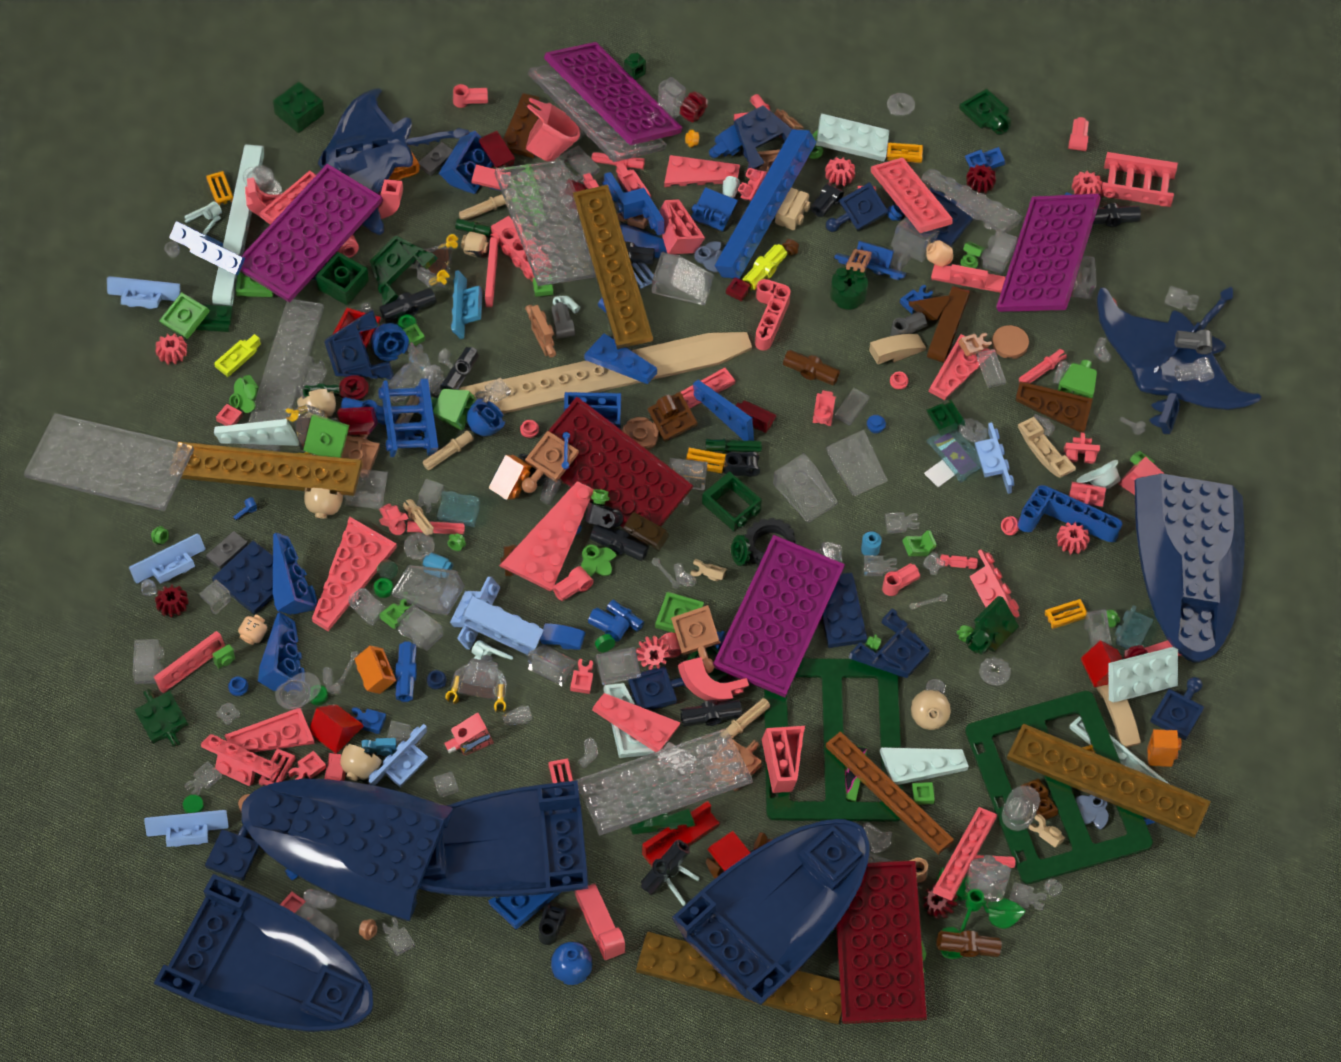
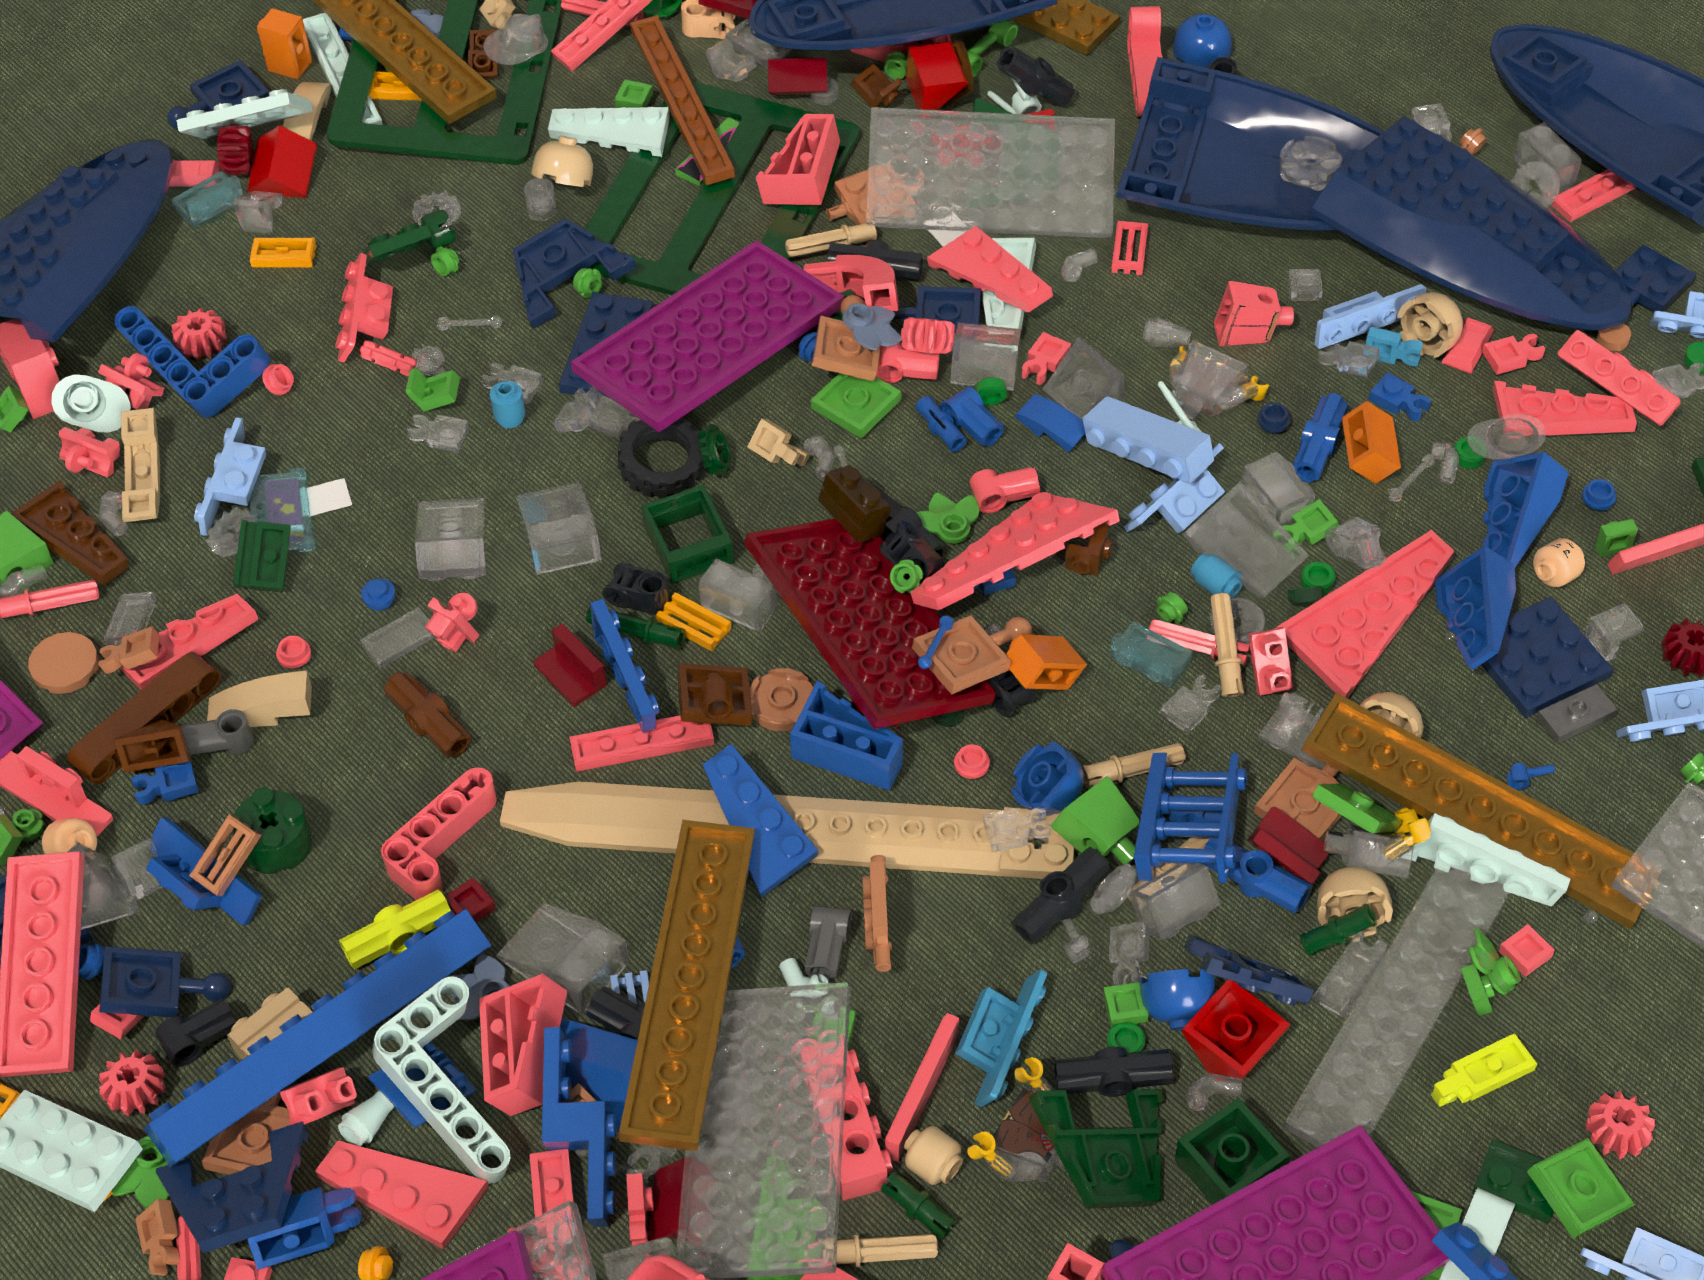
camera: 155 degrees left, 5 degrees down
(228, 708) = (1623, 461): clear plate -> none
(263, 780) = (1547, 384): coral tile -> none
(334, 727) = (1453, 388): red slope -> none
(350, 382) = (1267, 923): dark red gear -> none
(468, 868) = (1313, 175): none -> clear plate
(684, 644) = (871, 326): none -> sand blue plate
(719, 197) = (436, 1082): none -> light aqua beam
(791, 247) = (324, 956): reddish brown plate -> none
(900, 578) = (505, 348): coral piece -> none
(1113, 618) = (227, 224): bright green plate -> none

